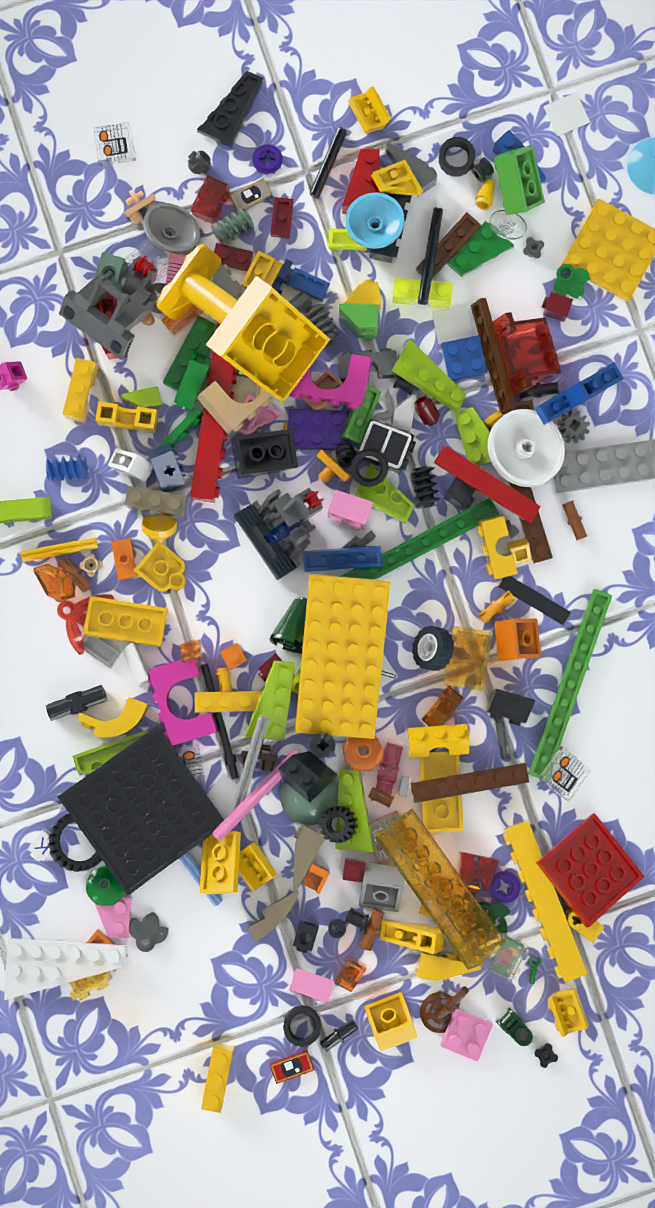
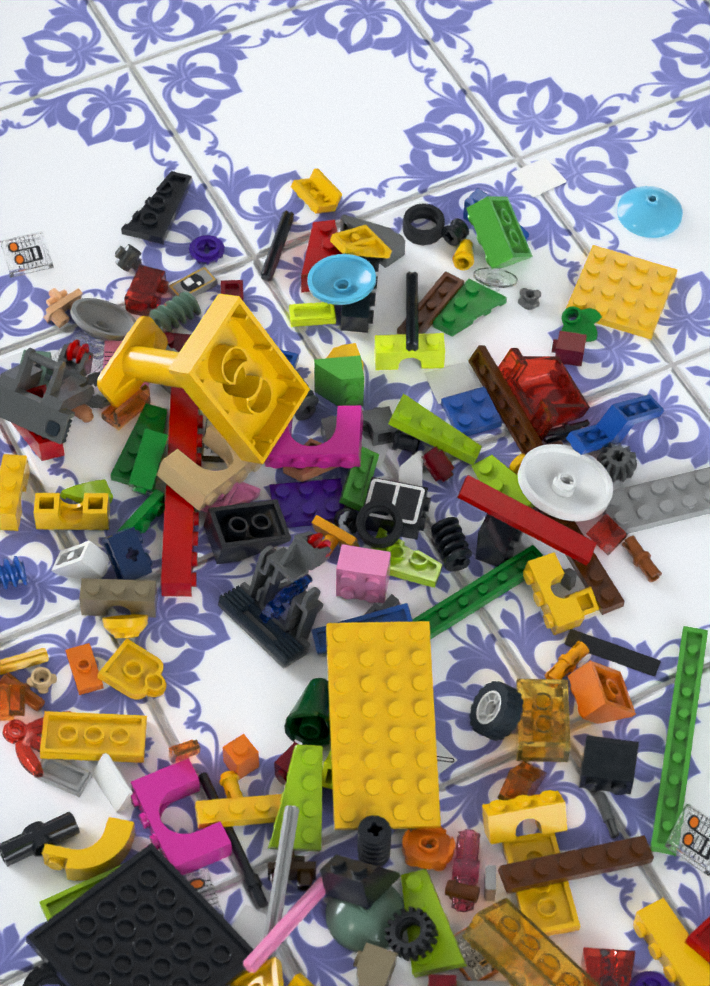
camera: 10 degrees left, 30 degrees down
(551, 496) = (607, 534): none -> clear red panel

